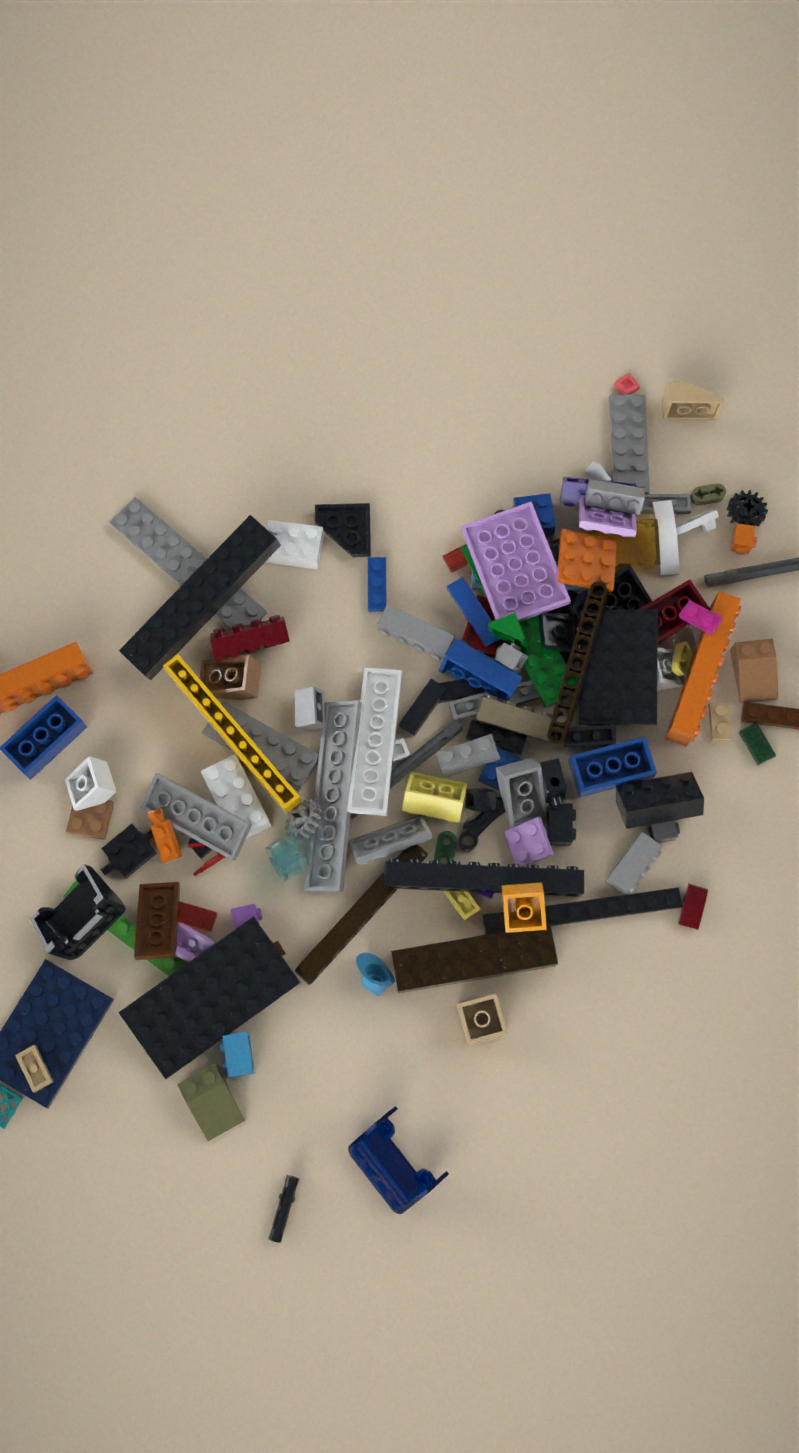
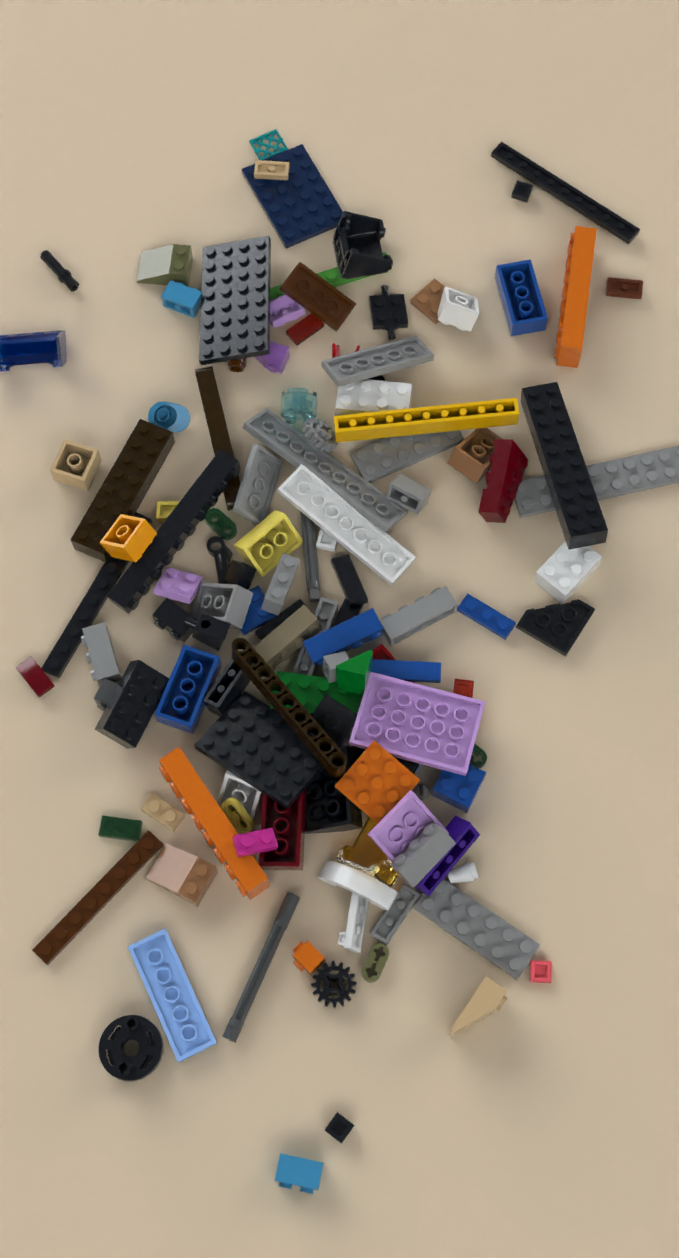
camera: 125 degrees right, 5 degrees down
(164, 836) = (380, 336): orange plate -> none

